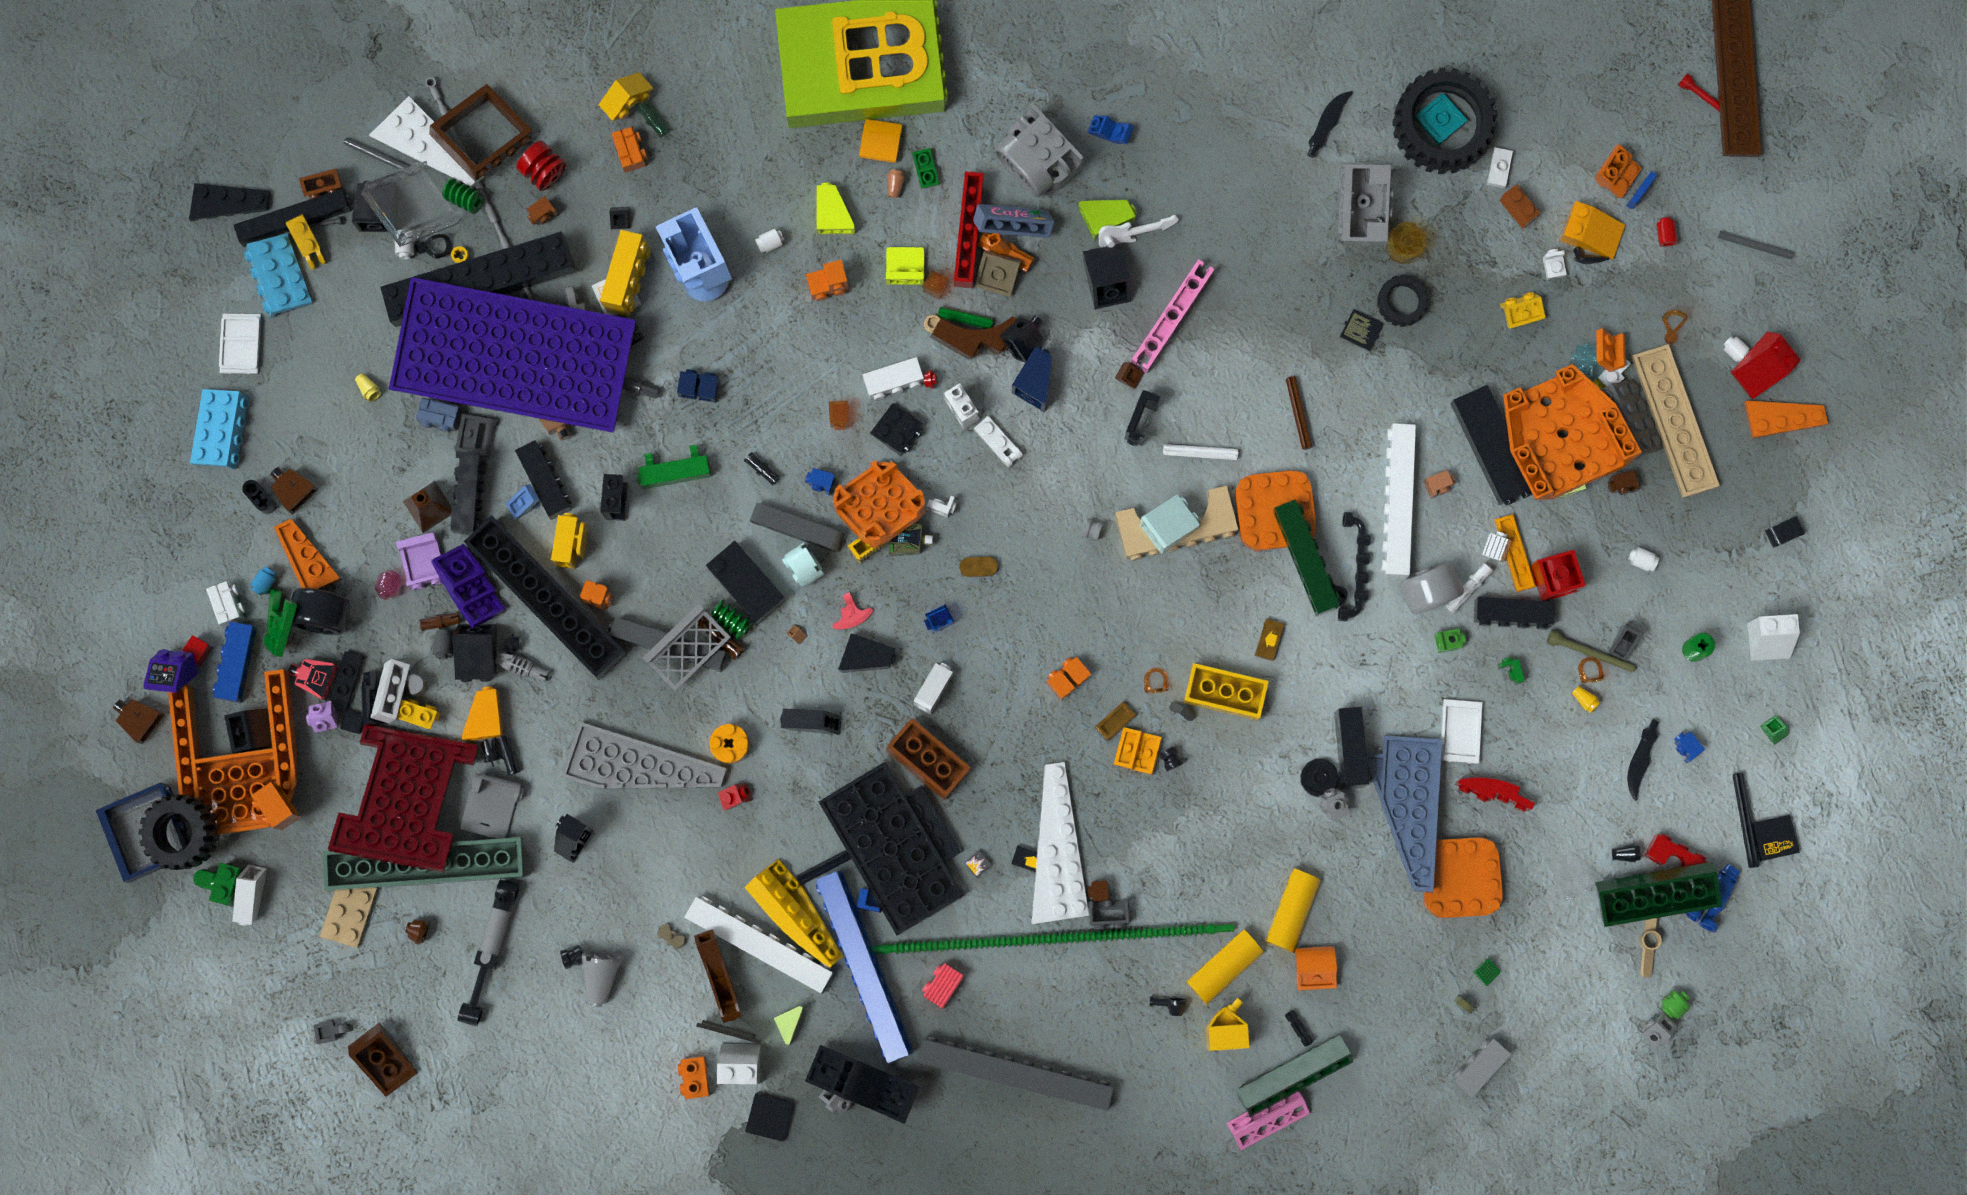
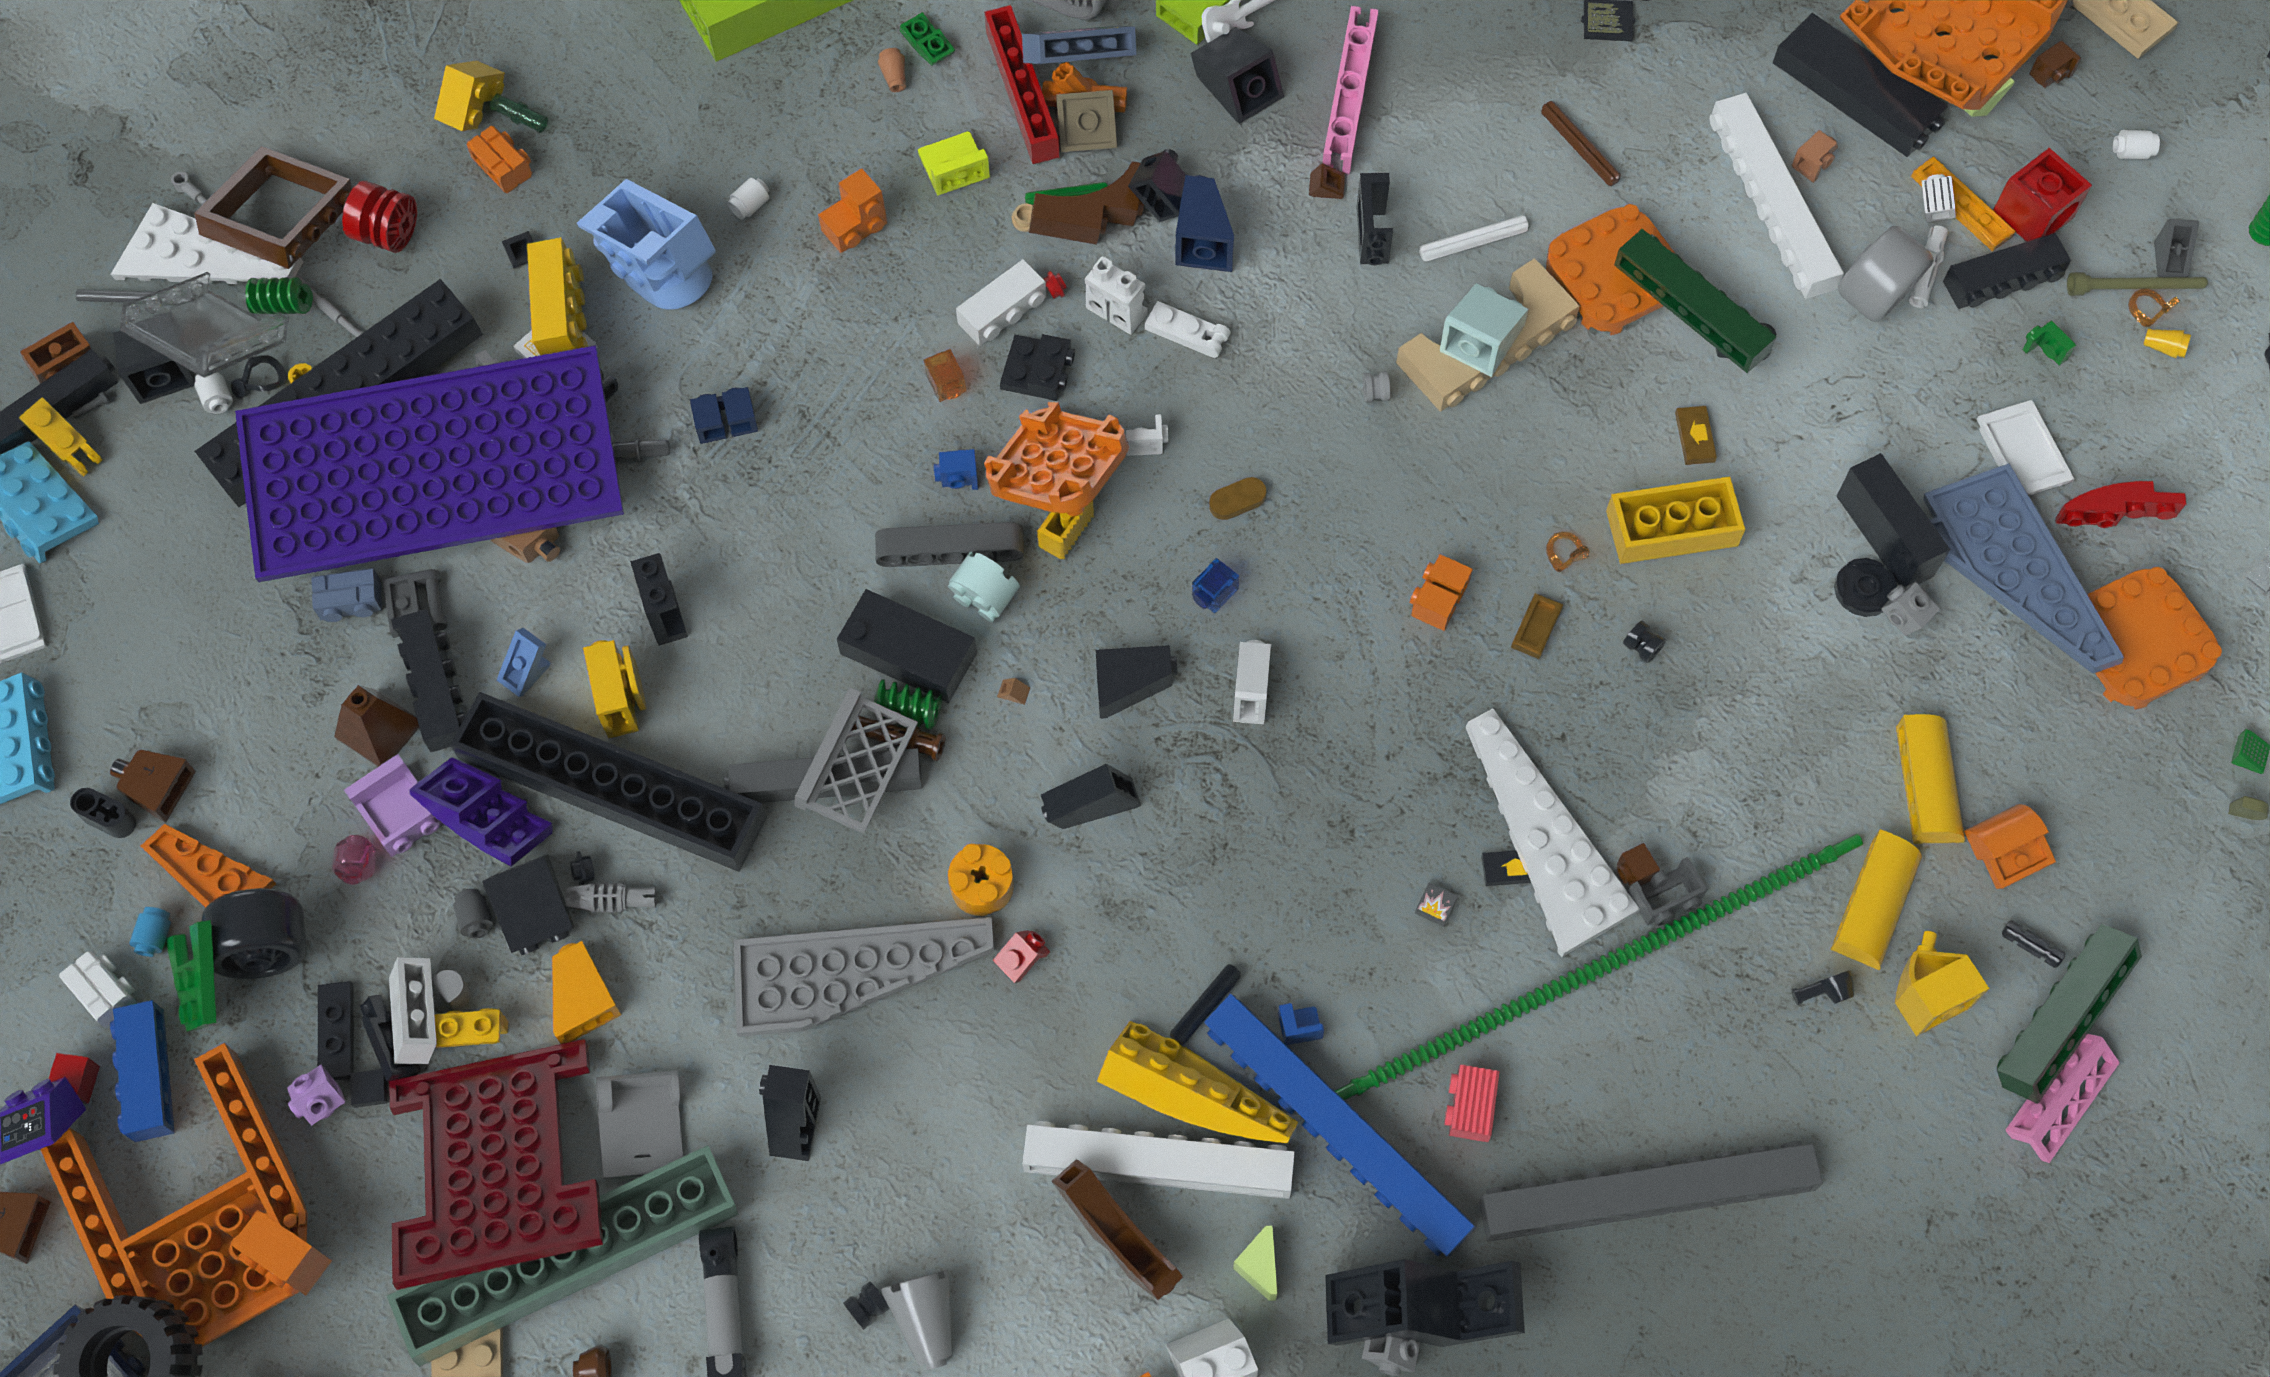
camera: 20 degrees left, 15 degrees down
(248, 730) = (197, 1161): black slope -> none
(314, 676) = (281, 1041): torso -> none
(368, 388) = (226, 600): light yellow cone -> none
(439, 621) = (455, 882): reddish brown pin -> none
(490, 753) = (609, 1043): black piece -> none
(508, 755) = (639, 1036): black pin -> none
(541, 212) = (403, 277): dark orange brick -> none
(543, 480) = (525, 608): black brick -> none
(596, 595) = (687, 745): orange brick -> none
(674, 471) = (734, 538): green brick -> none
(675, 940) = (1012, 1208): dark tan piece -> none
(729, 1031) = (1172, 1312): clear smoke piece -> none
(762, 468) = (864, 488): black pin -> none
(832, 212) = (822, 133): neon yellow slope -> none
(851, 615) = (1082, 633): coral piece -> none
(880, 140) = (850, 28): light orange slope -> none
(895, 846) = (1302, 927): black slope -> none
(909, 541) = (1122, 500): torso -> none
(928, 759) = (1291, 781): dark orange brick -> none
(935, 284) = (1006, 166): clear orange brick -> none
(1138, 751) = (1591, 653): light orange slope -> none
(1182, 711) = (1625, 571): dark grey tile -> none
(1361, 558) = (1778, 360): black bar -> none
(1443, 643) = (1941, 339): bright green brick -> none

